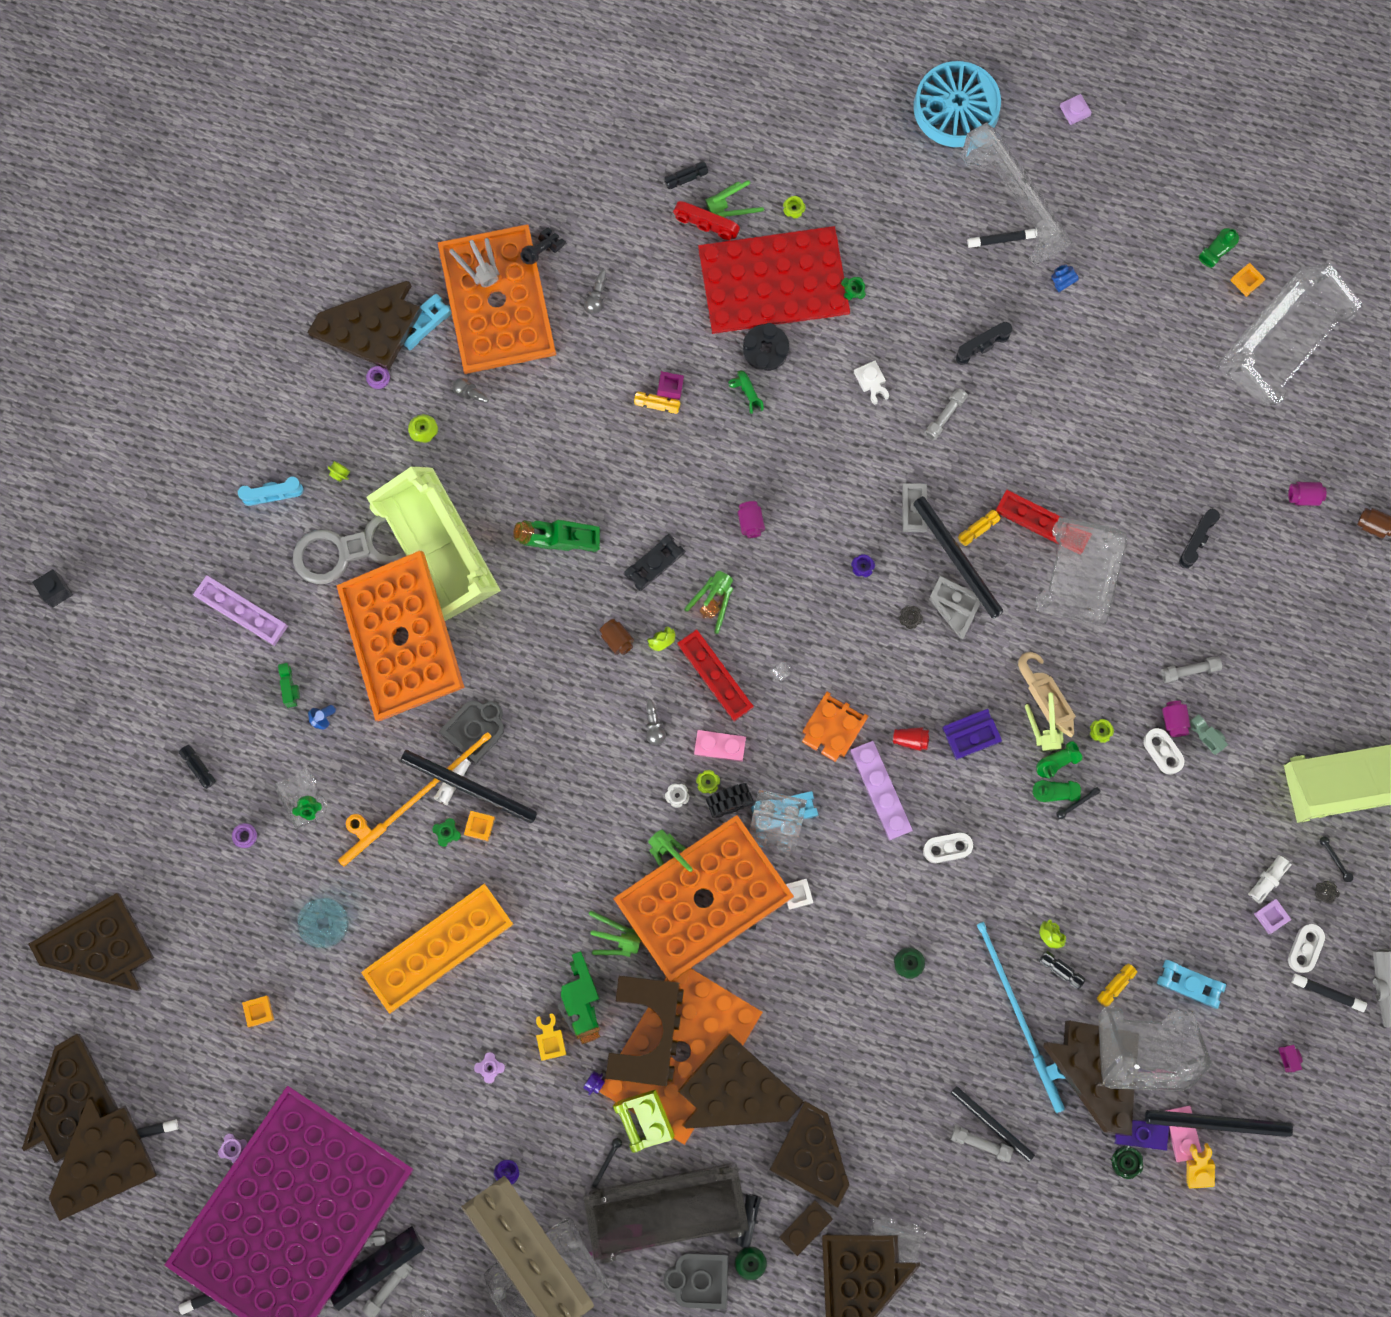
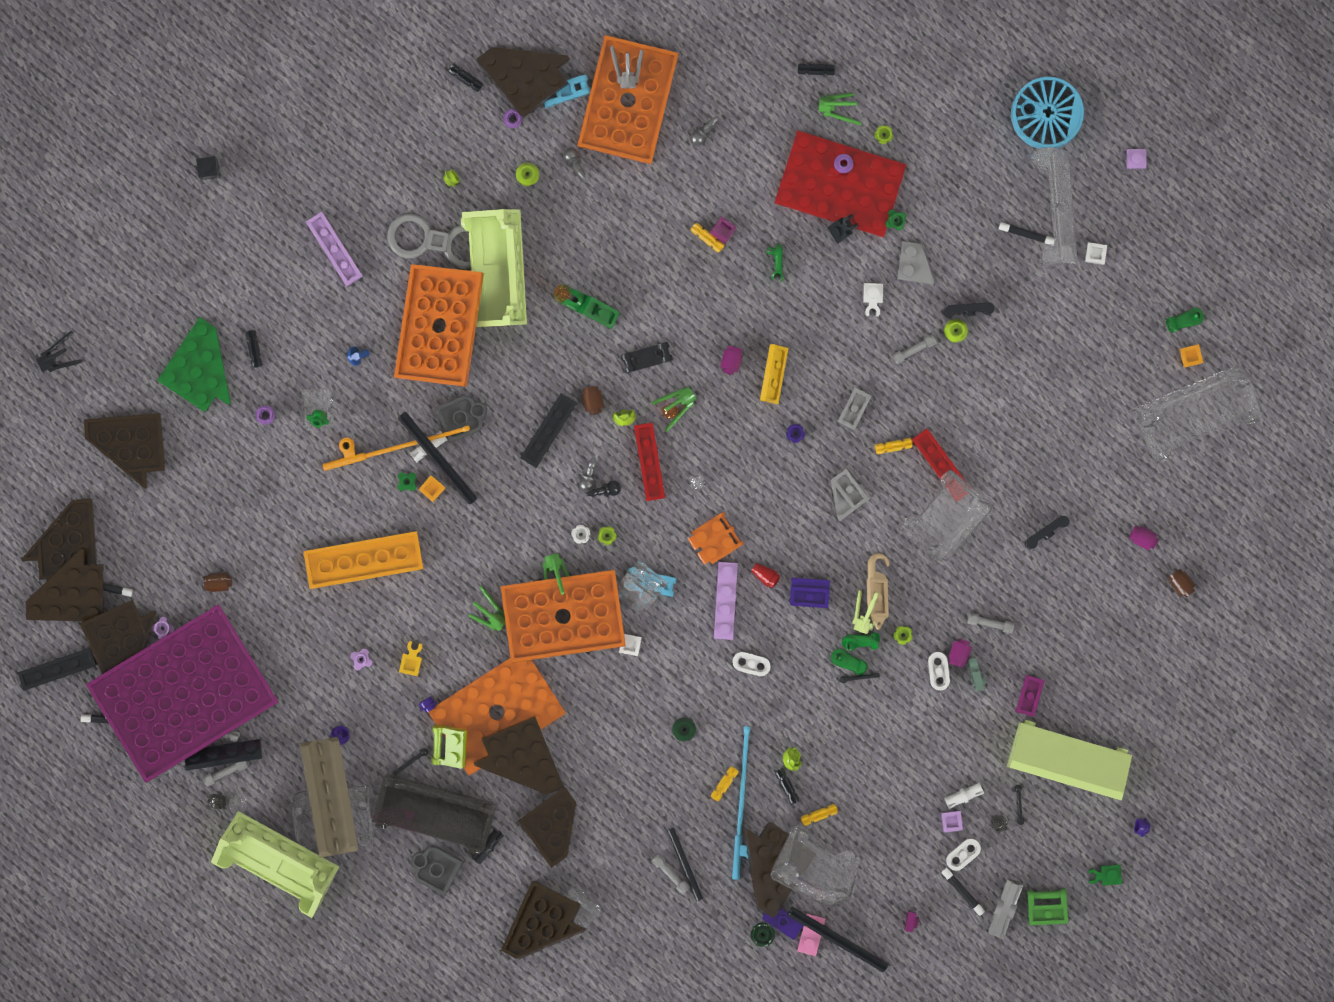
camera: 30 degrees right, 10 degrees up
(123, 1263) = (57, 669): none -> black plate
(141, 820) = (198, 368): none -> green wing
(178, 1183) = (117, 634): none -> dark brown wing
(258, 1011) = (220, 543): light orange plate -> none
(270, 492) = (395, 170): medium azure plate -> none
(274, 1059) = (217, 582): none -> reddish brown brick
(289, 691) = (343, 326): green plate -> none
(304, 359) = (464, 77): none -> black axle
(337, 922) = (302, 508): clear light blue plate -> none
(531, 254) = (667, 80): black hinge -> none
(576, 1002) = (441, 644): green plate -> none
(582, 696) = (548, 430): none -> black plate
(663, 999) = (473, 714): dark brown arch -> none
(687, 726) = (612, 488): none -> black bar
(706, 220) = (812, 114): red plate -> none
(720, 745) = (628, 513): bright pink plate -> none
(729, 800) = (614, 557): black tyre -> none
(744, 1257) = (481, 873): dark green plate -> none
(761, 359) = (801, 242): black plate -> none
(764, 258) = (839, 168): none -> medium lavender plate
(799, 322) = (842, 228): none -> black plate
(805, 1228) = (524, 870): dark brown plate -> none
(806, 512) = (774, 374): none -> yellow plate
(898, 325) = (913, 264): none -> light grey wing
(910, 623) = (810, 482): clear smoke plate -> none
(958, 557) = (864, 459): black axle -> none
(978, 379) = (954, 336): none -> lime plate
(989, 1003) = (724, 783): none -> yellow axle
(1064, 277) = (1056, 286): blue plate -> none
(1087, 222) = (1096, 253): none -> white plate
(1191, 984) = (870, 839): medium azure plate -> none
(1201, 1169) = (809, 962): yellow plate -> none
(1280, 729) = (1029, 695): none -> magenta plate

